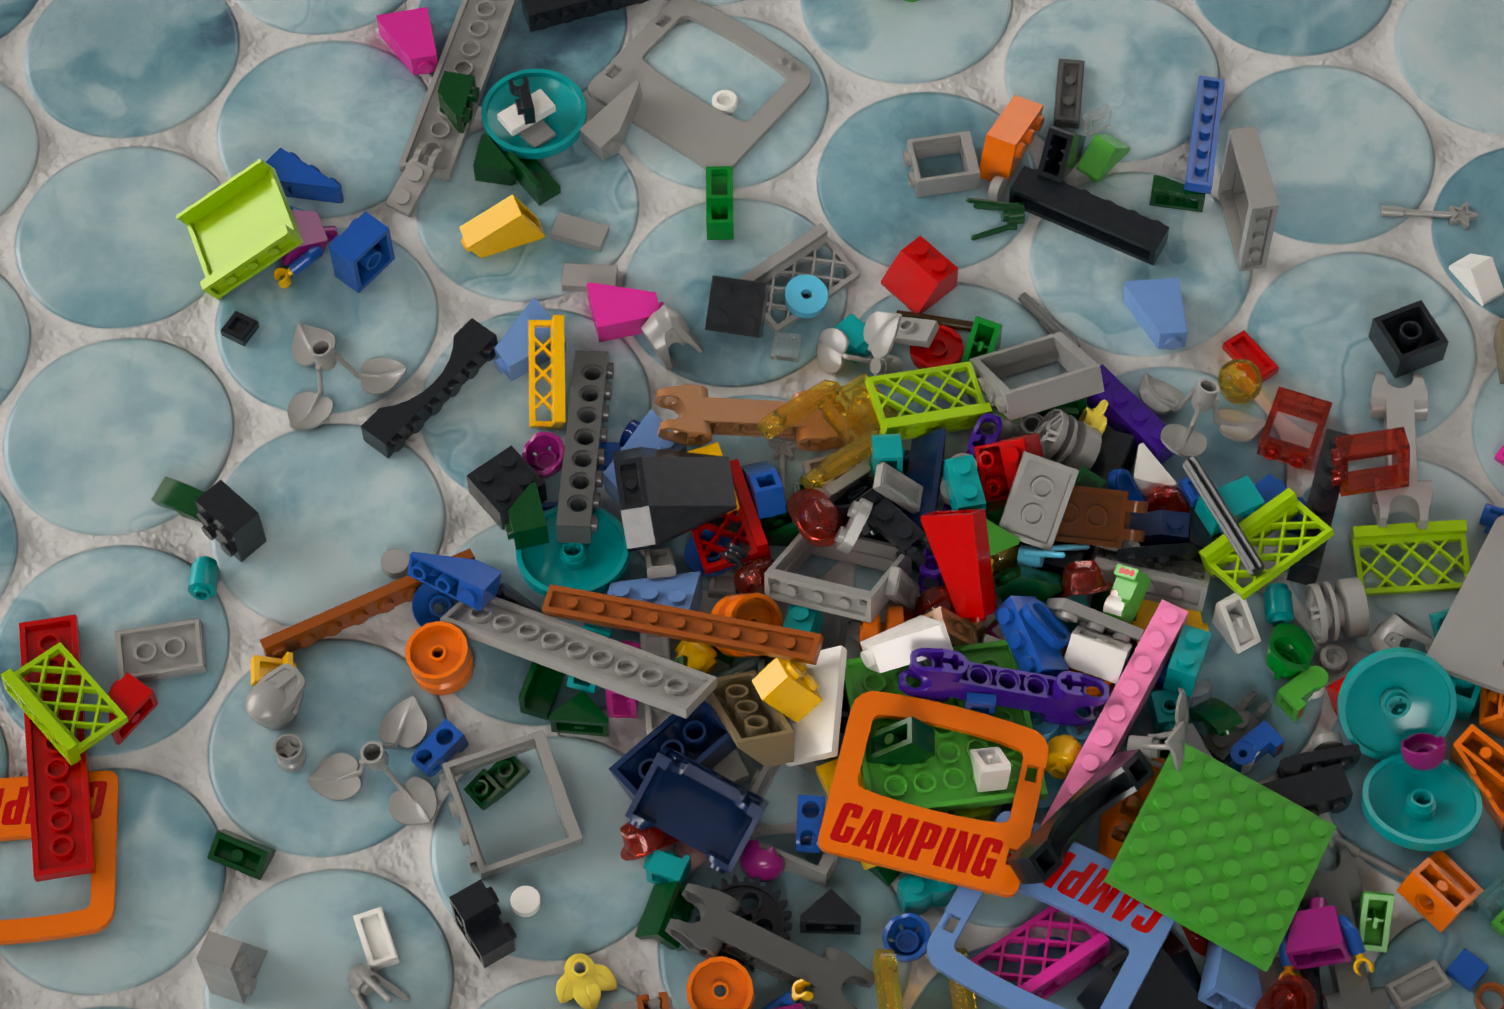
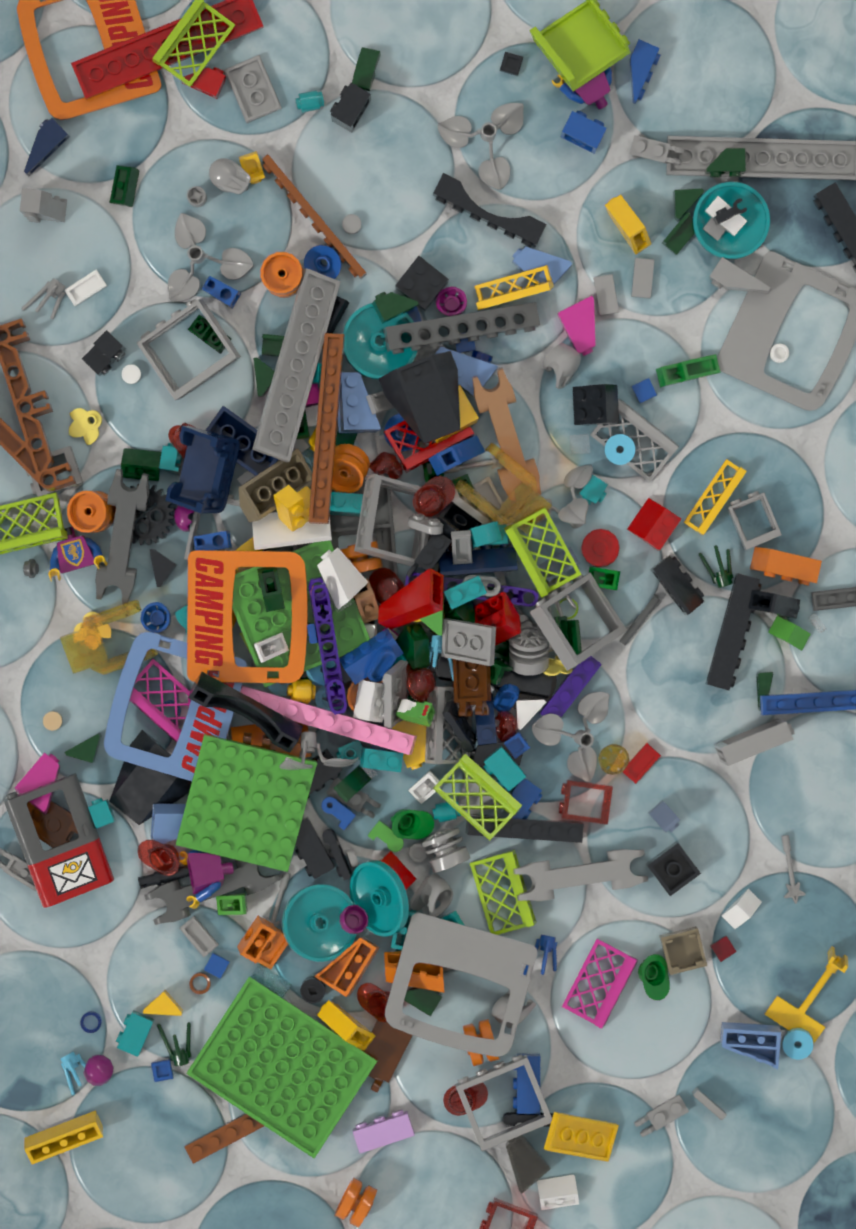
camera: 75 degrees right, 30 degrees up
(138, 944) = (47, 141): none -> dark blue slope
(410, 38) = (781, 114): dark pink slope -> none
(456, 577) = (337, 273): blue slope -> none
(733, 258) = (644, 390): none -> blue tile
(734, 555) = (393, 449): black bush -> none
(902, 589) = (390, 565): light grey tile -> none
(904, 194) = (723, 497): none -> yellow fence
(916, 332) = (607, 526): light grey plate -> none
(956, 324) = (623, 543): dark brown piece -> none
(997, 188) = (741, 564): light grey tile -> none
(1011, 265) = (678, 584): none -> black slope
(1158, 309) = (662, 695): medium blue slope -> none
(1223, 516) = (487, 765): axle -> none
(1333, 334) = (664, 817): none -> sand blue slope
(1371, 445) = (547, 857): clear red window -> none

